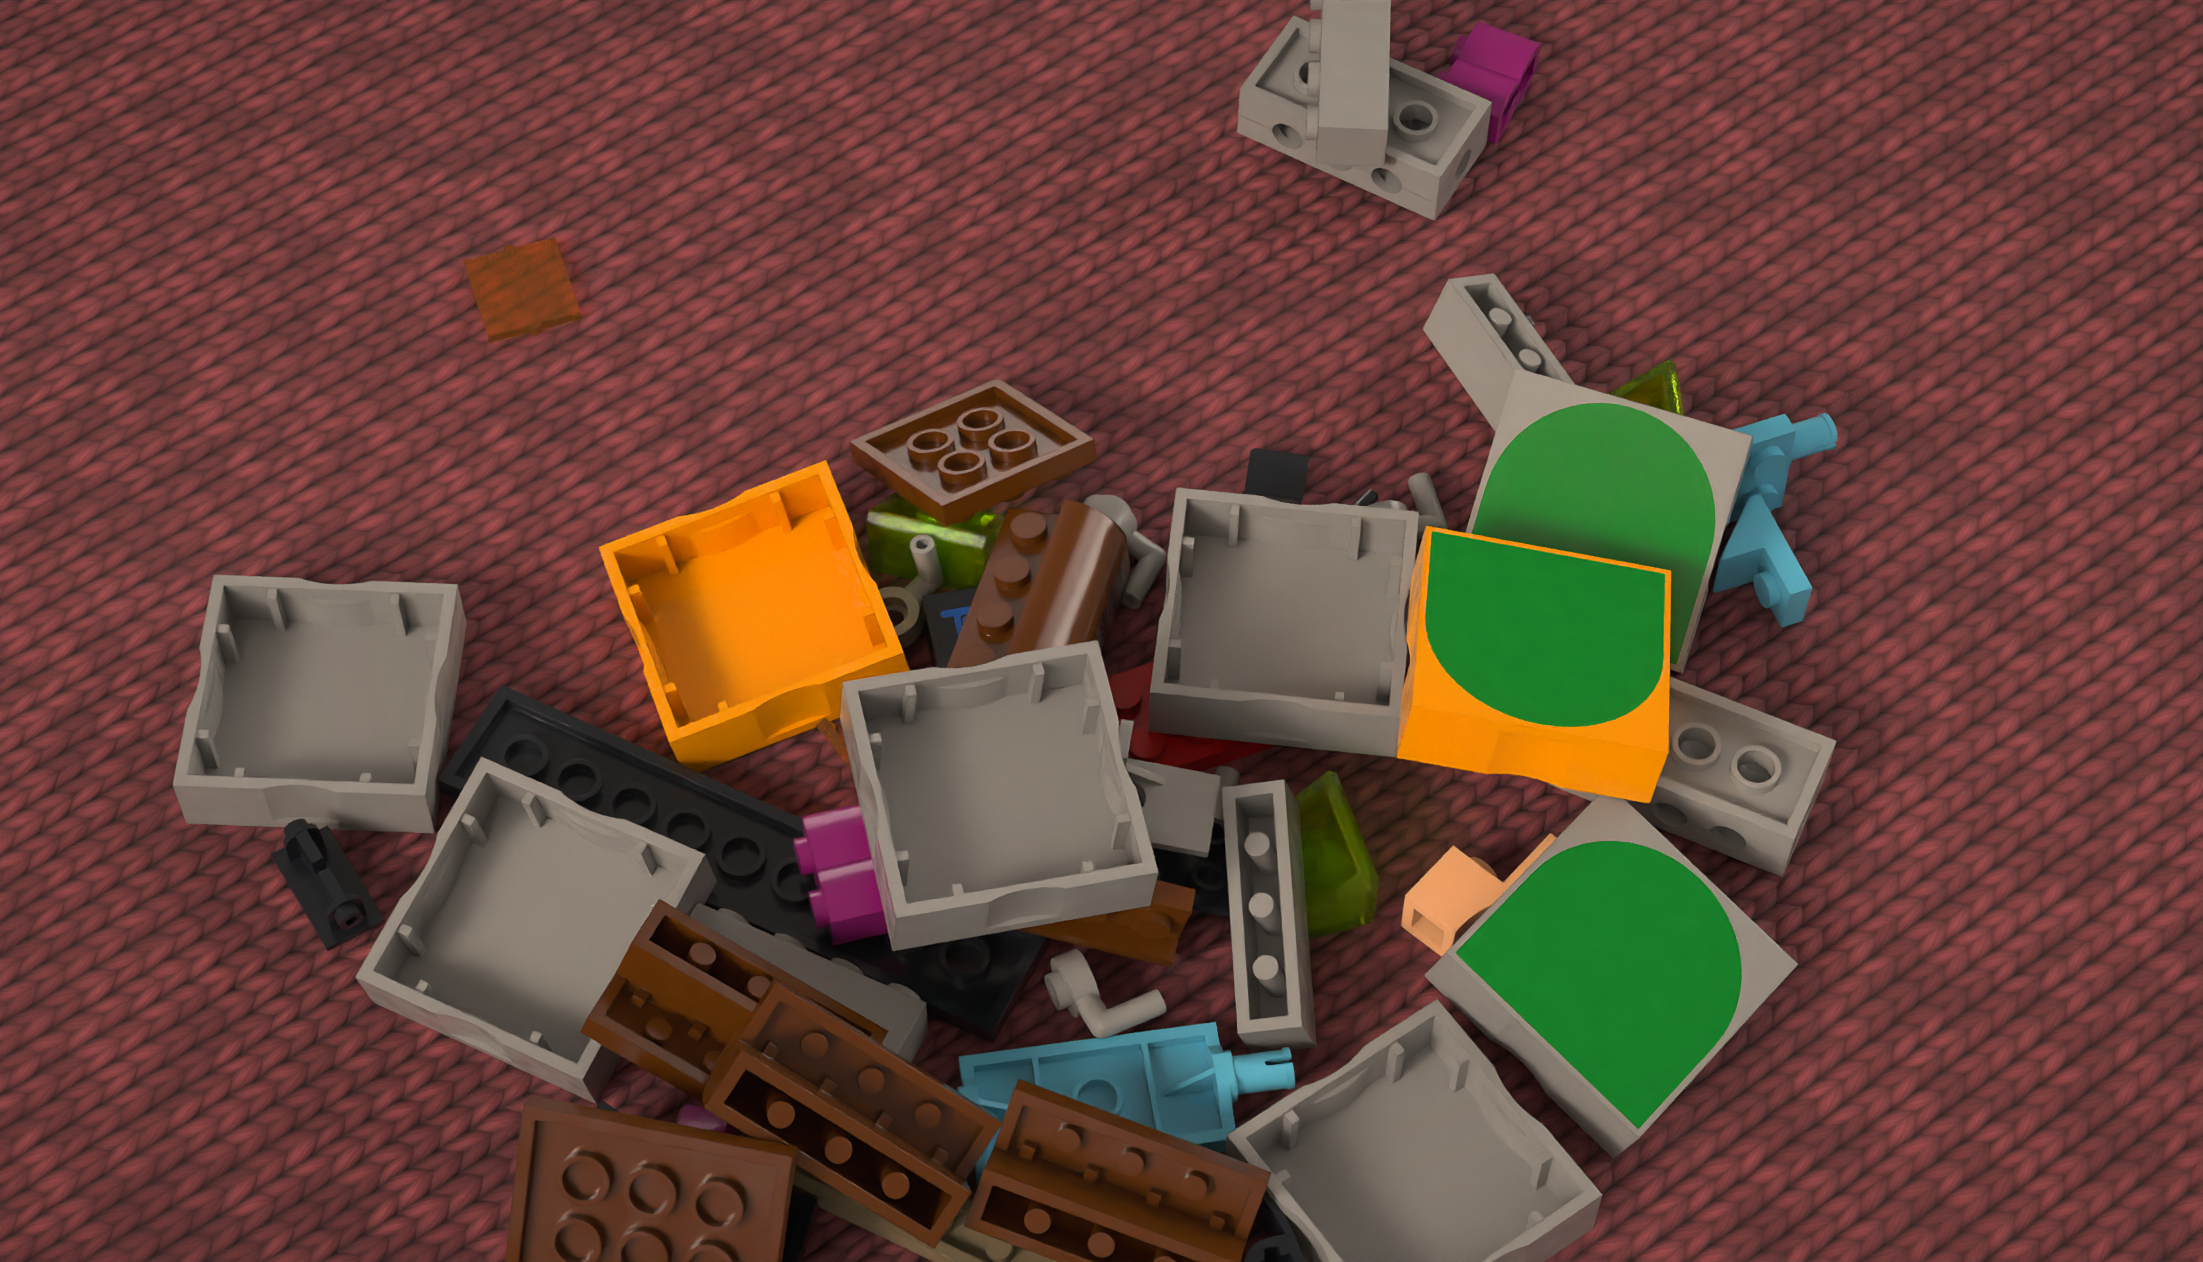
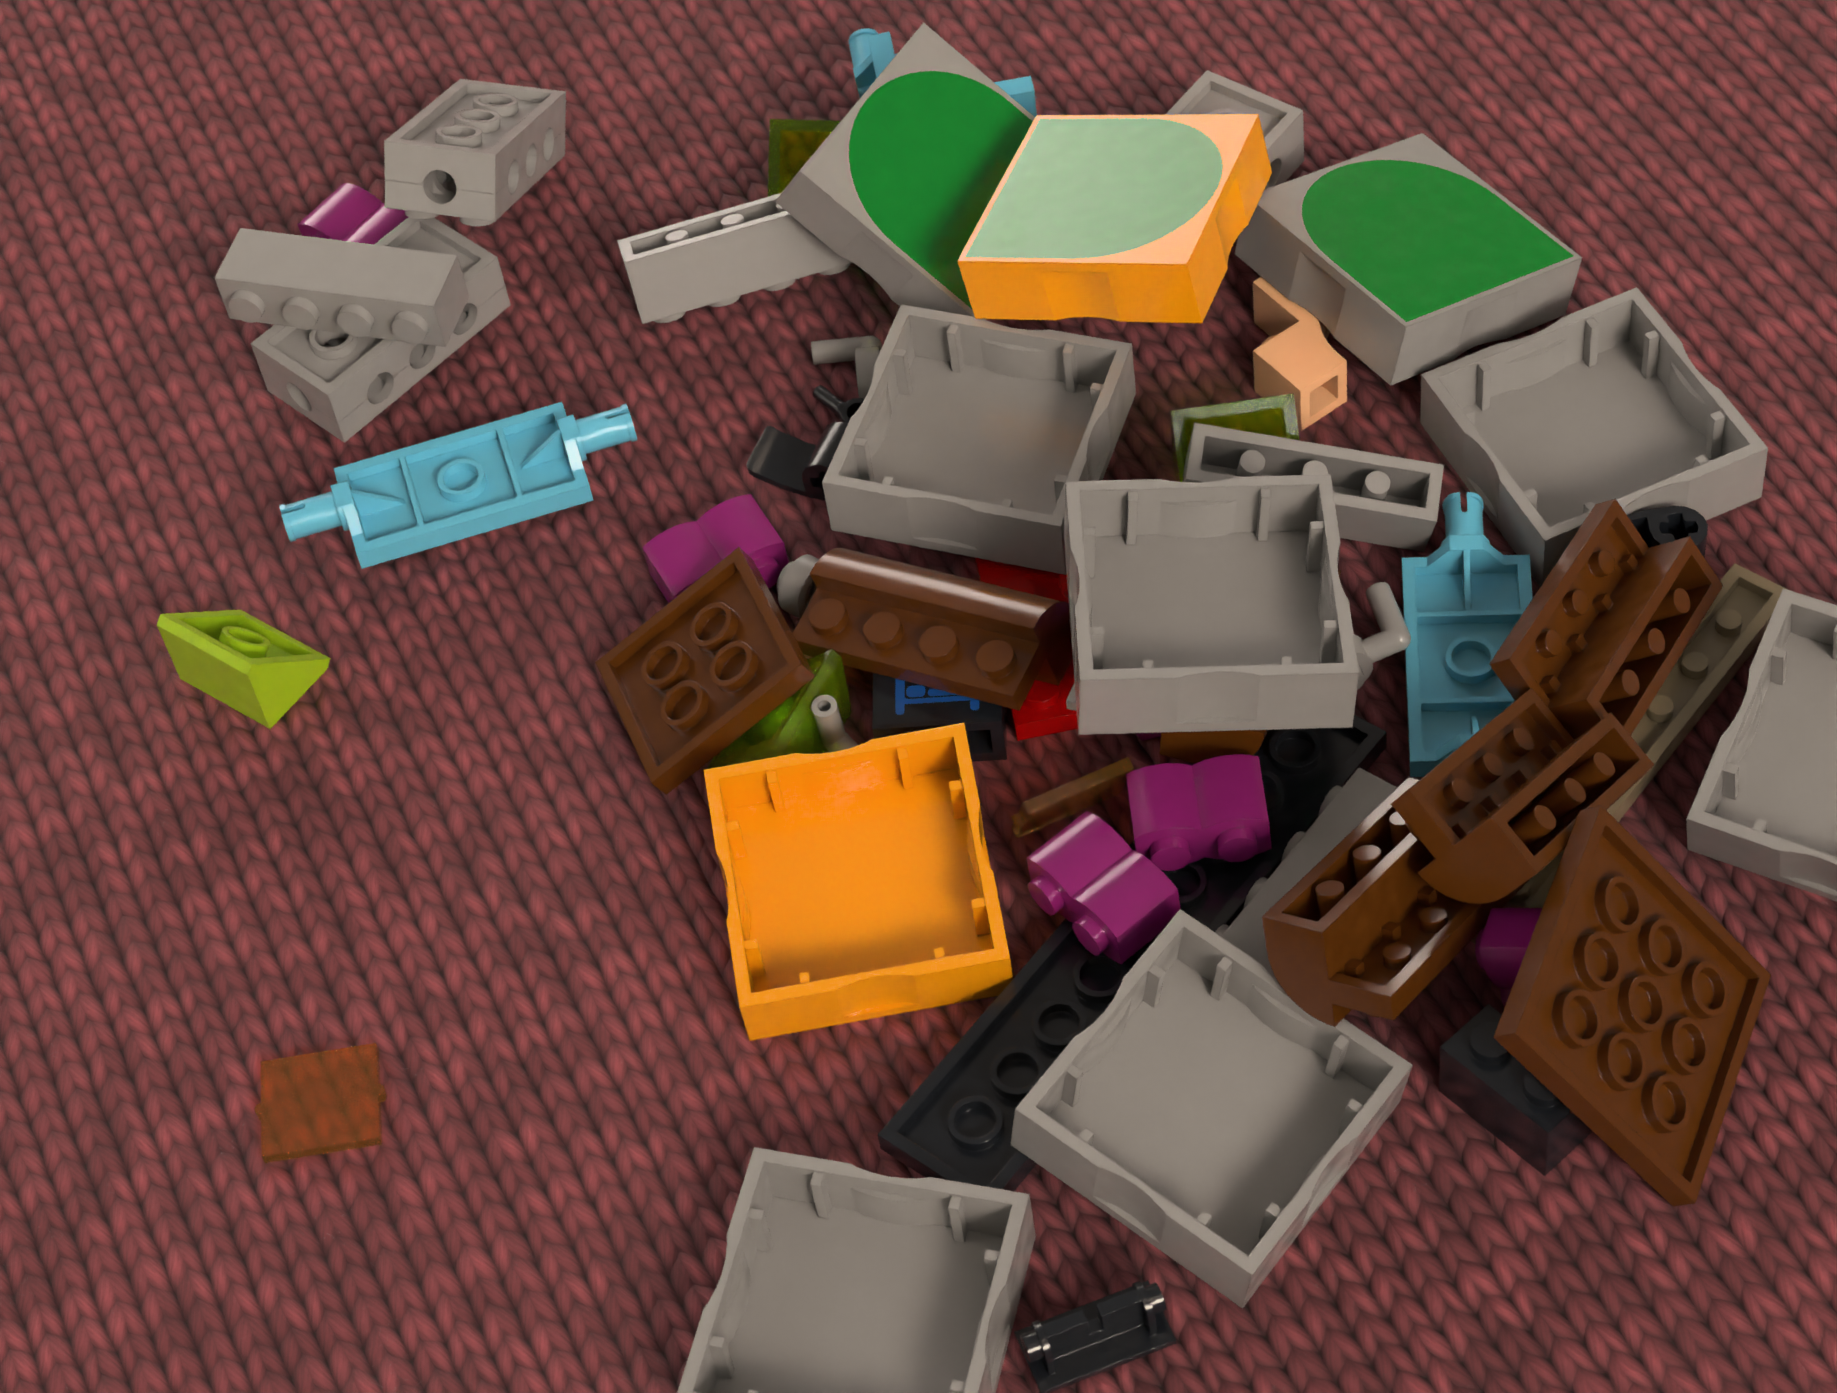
camera: 70 degrees left, 5 degrees down
(757, 805) = (1102, 888): none -> magenta brick
(962, 114) = (241, 661): none -> lime slope
(1135, 447) = (693, 548): none -> magenta brick
(1192, 228) = (461, 483): none -> medium azure plate
(1576, 127) = (474, 151): none -> light grey brick

